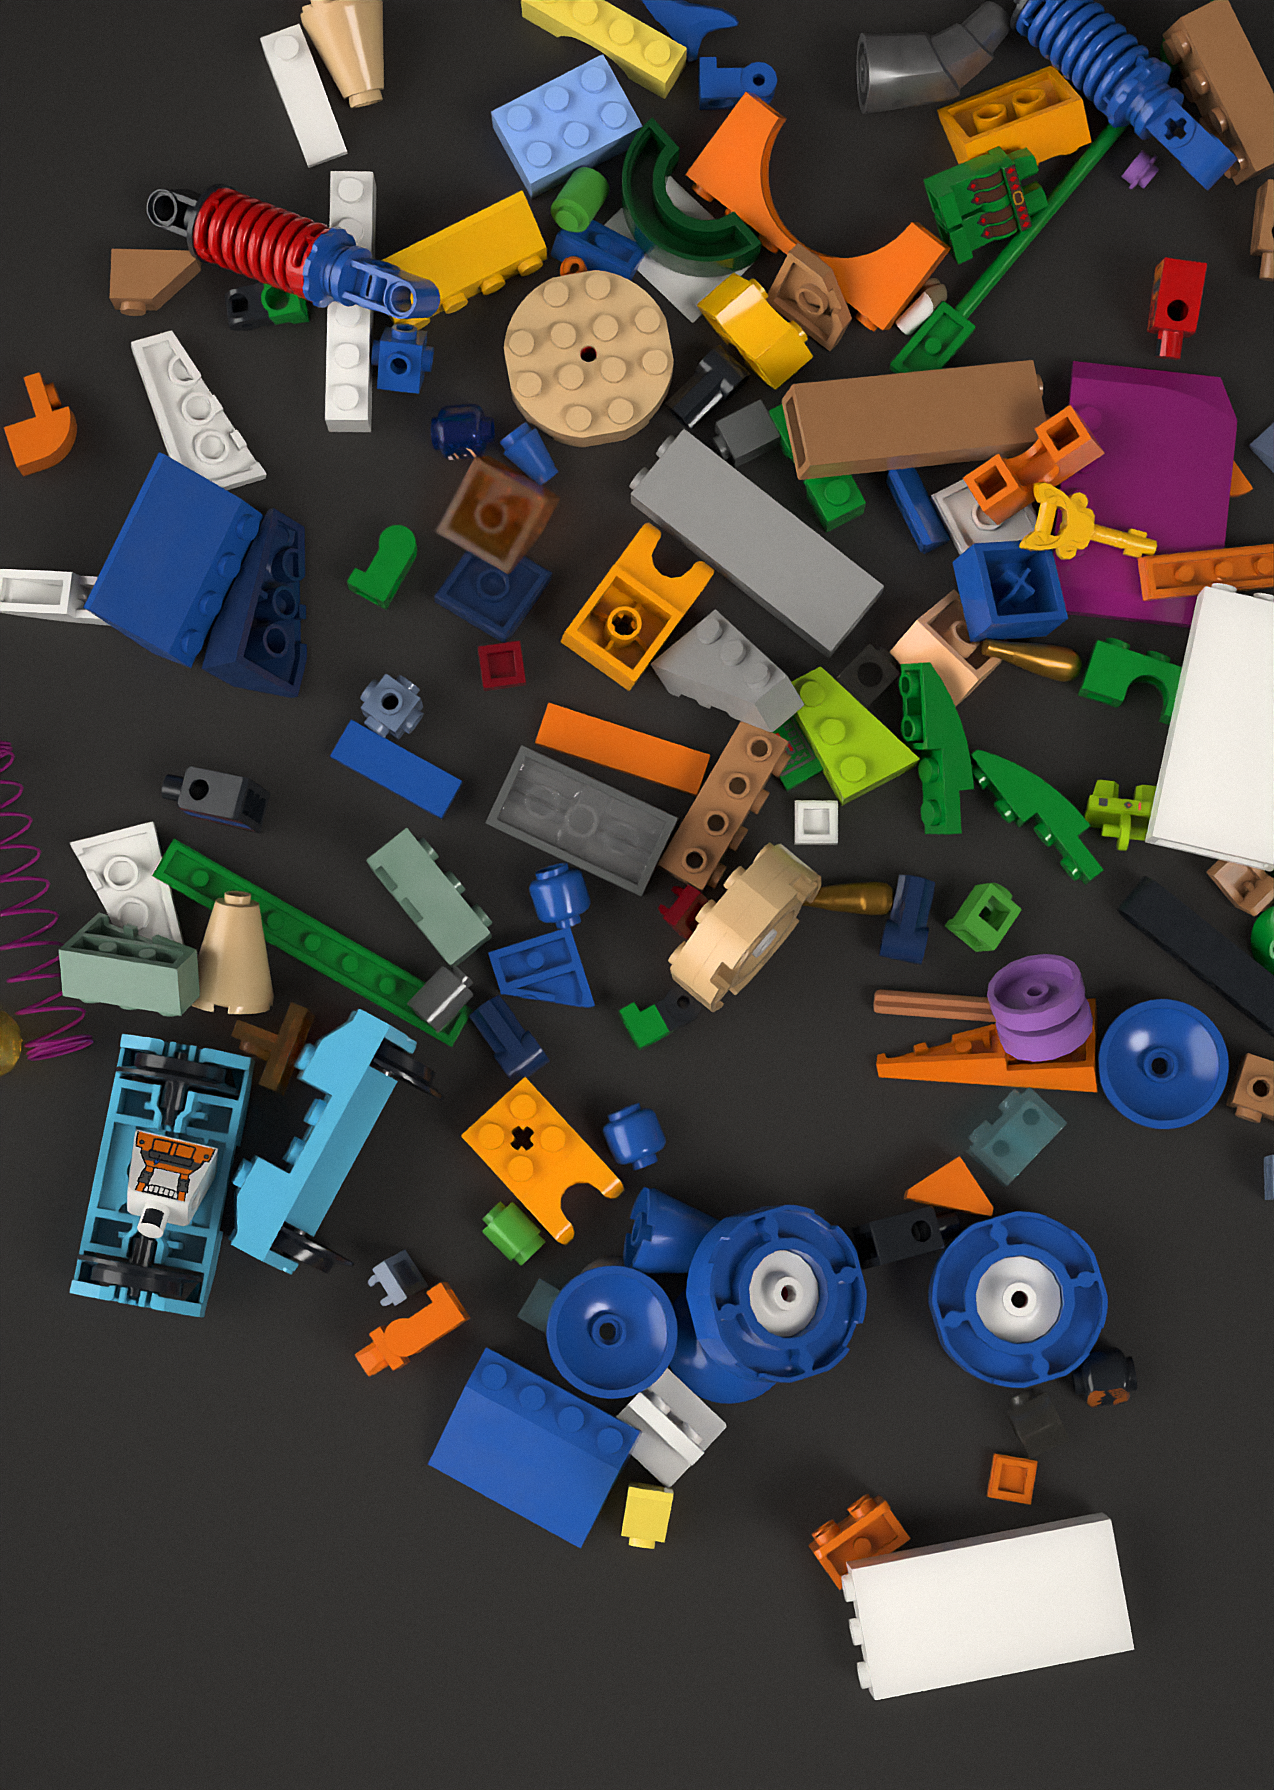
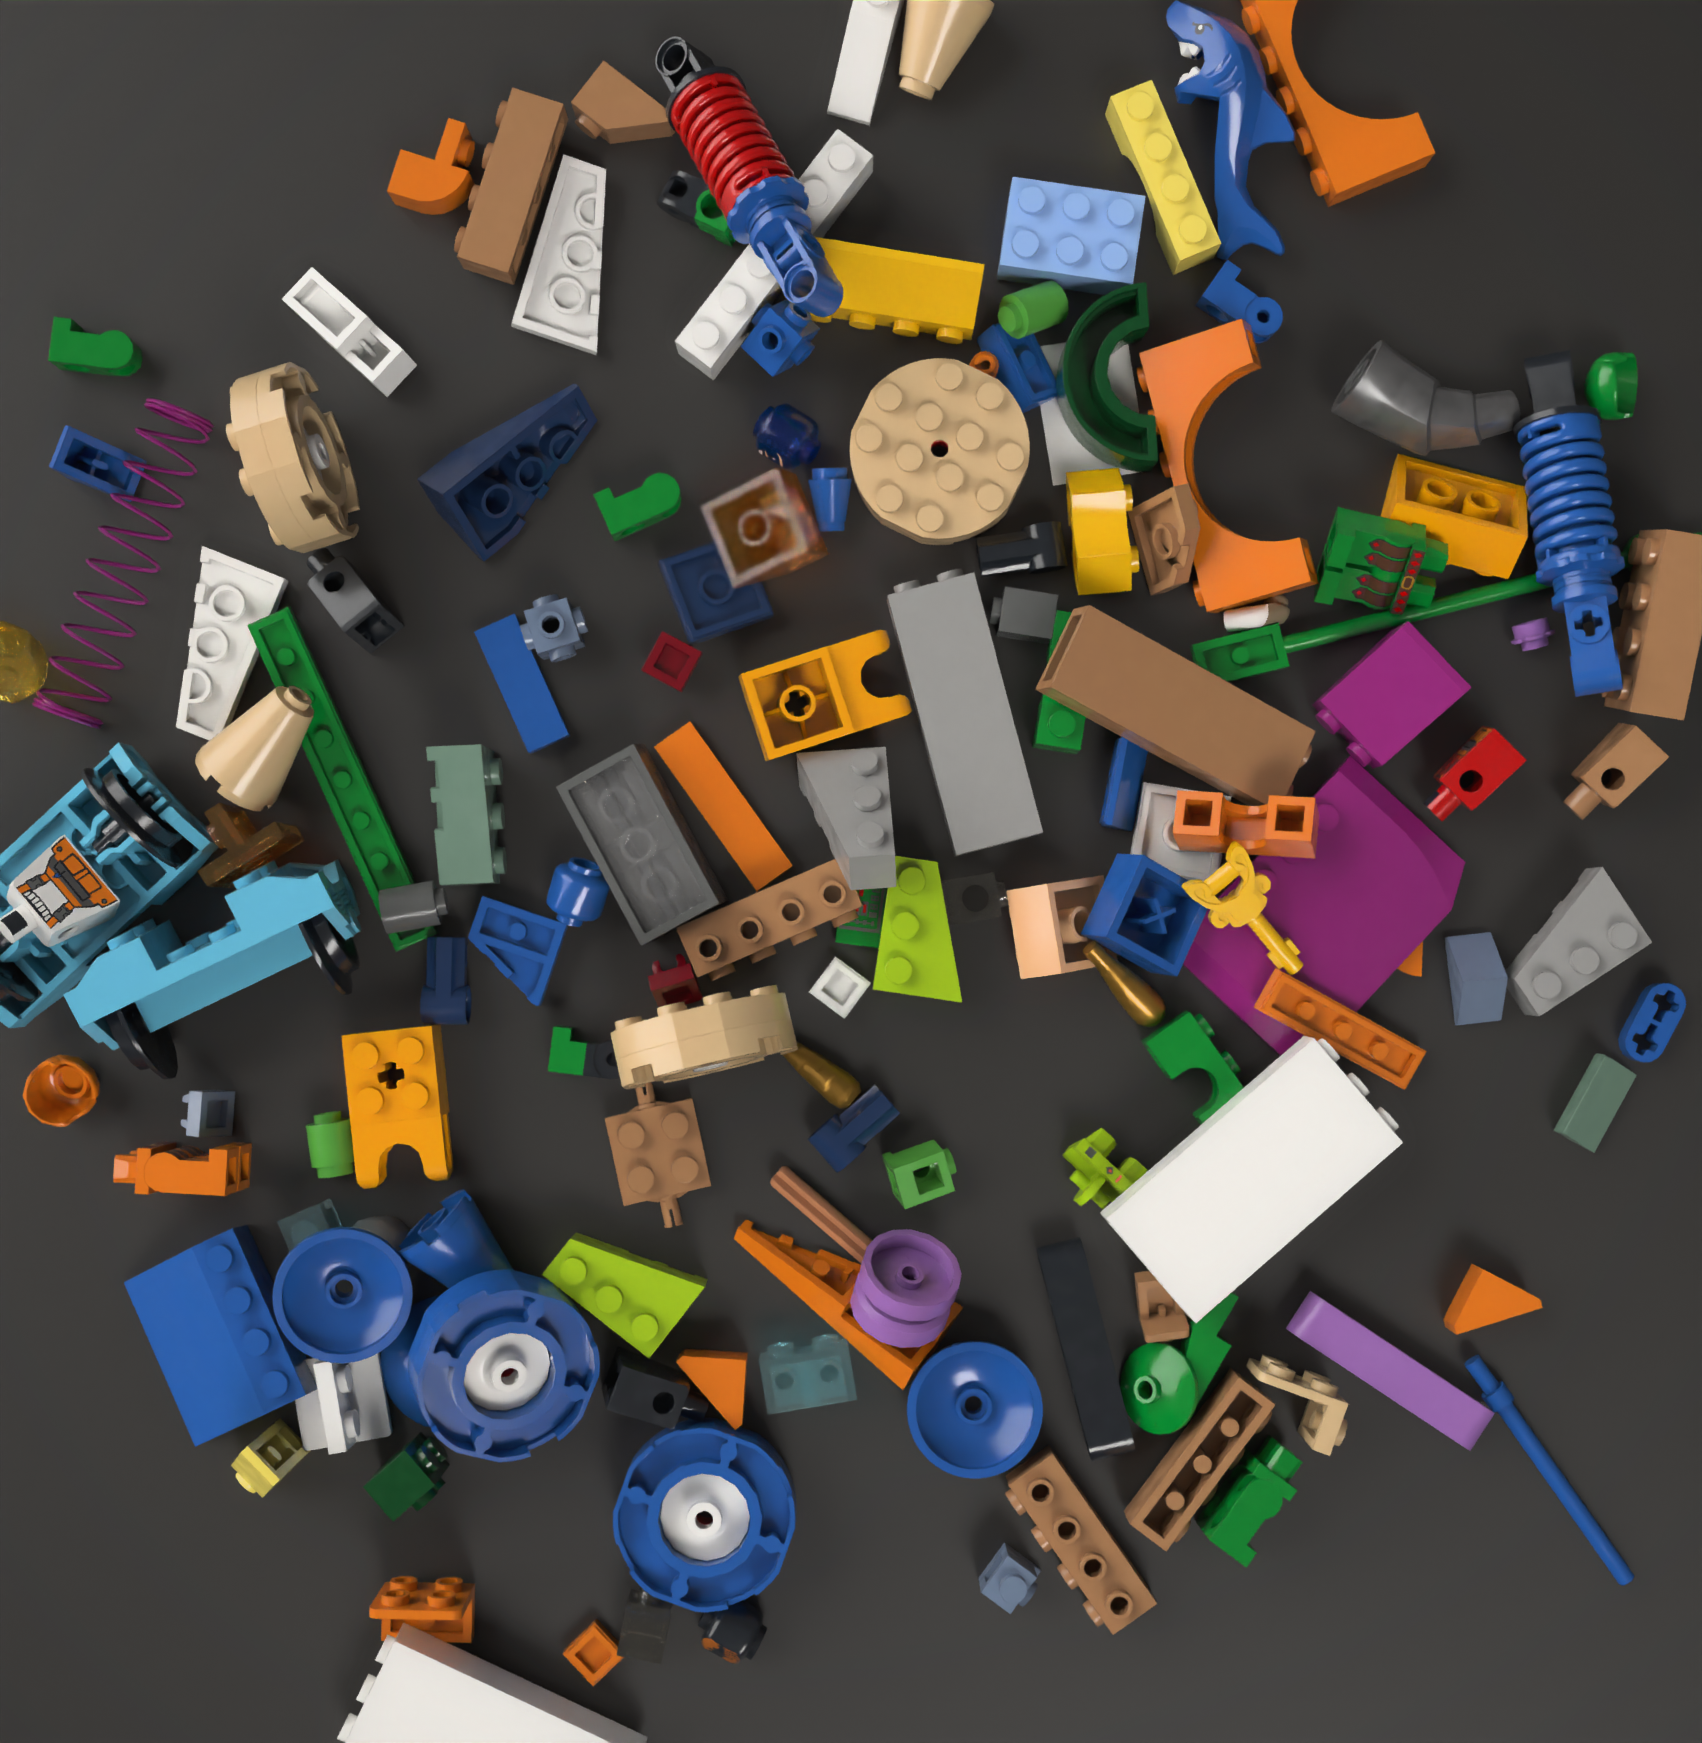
camera: 35 degrees right, 5 degrees up
(101, 715) = (292, 458): none -> tan piece
(109, 394) = (511, 186): none -> medium nougat brick
(129, 969) = (162, 690): sand green wedge -> none
(174, 561) = (454, 369): blue slope -> none
(270, 1344) = (61, 1090): none -> orange hair
(634, 1136) = (490, 1139): blue head -> none
(767, 1439) = (409, 1477): none -> dark green brick
(770, 1052) = (658, 1152): none -> medium nougat plate
(826, 1174) = (624, 1290): none -> lime wedge
(937, 731) = (994, 990): green slope -> none
(1027, 796) = (1030, 1099): green slope -> none
(1068, 293) = (1389, 696): none -> magenta slope

